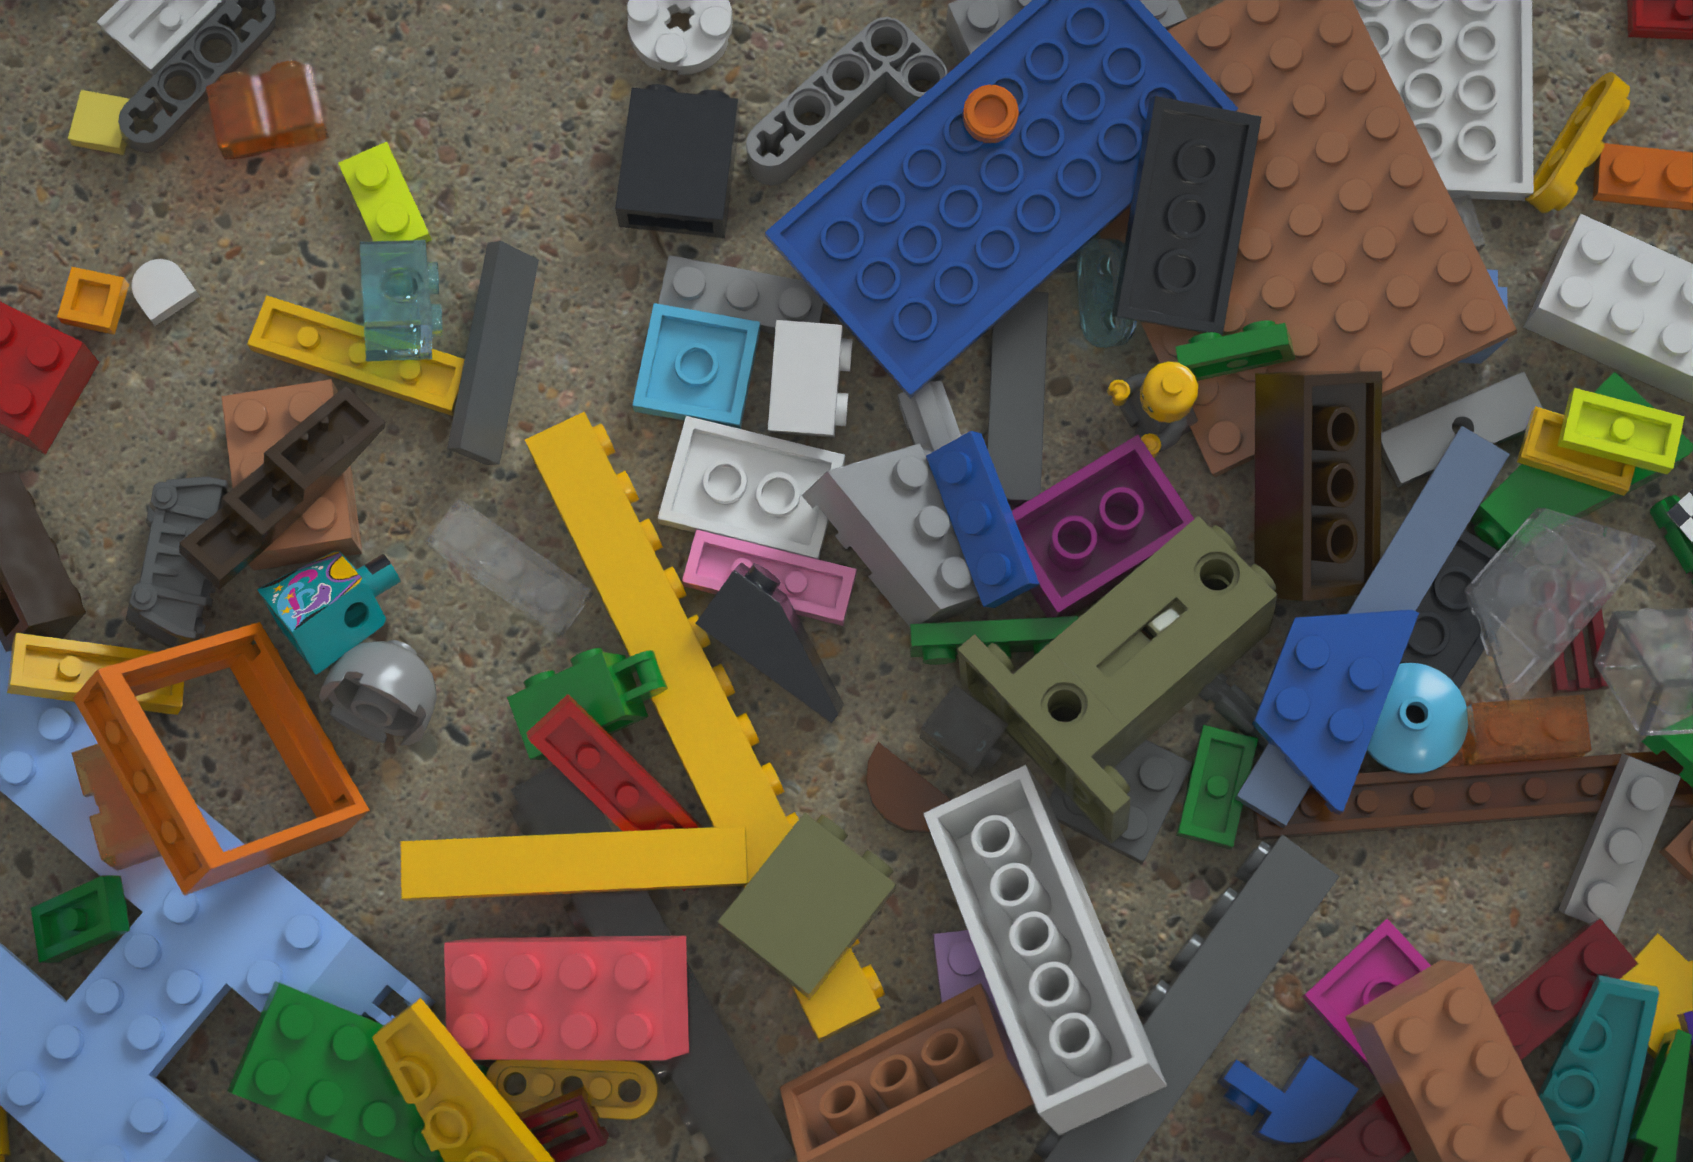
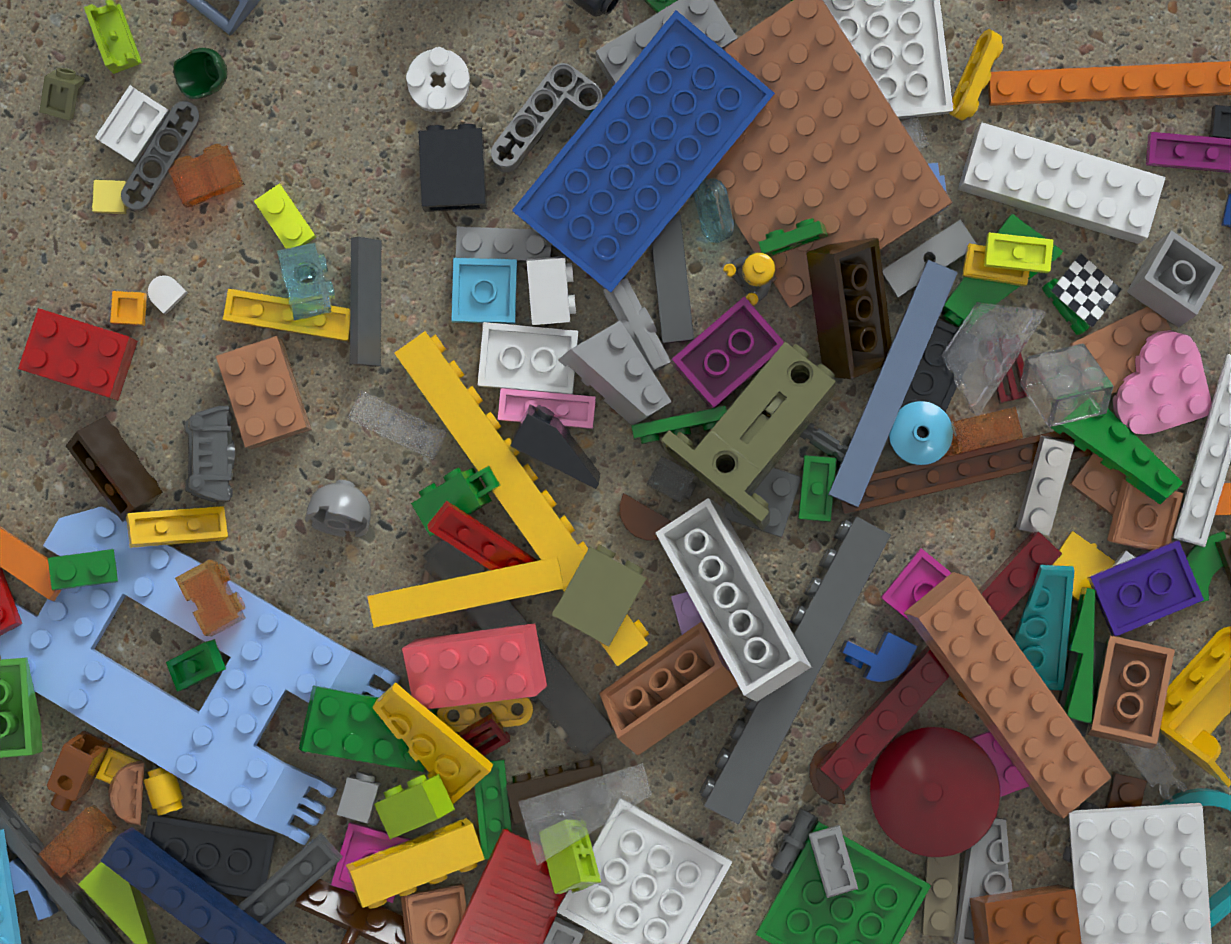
camera: 10 degrees left, 10 degrees up
(157, 788) = (226, 589): orange window -> none
(282, 488) = (262, 406): dark brown slope -> none
(329, 605) = (300, 467): teal torso -> none
(982, 519) = (663, 360): blue plate -> none
(990, 113) = (631, 120): orange tile -> none
(1186, 215) = (753, 163): black plate -> none
(1331, 694) = (873, 429): blue wing -> none

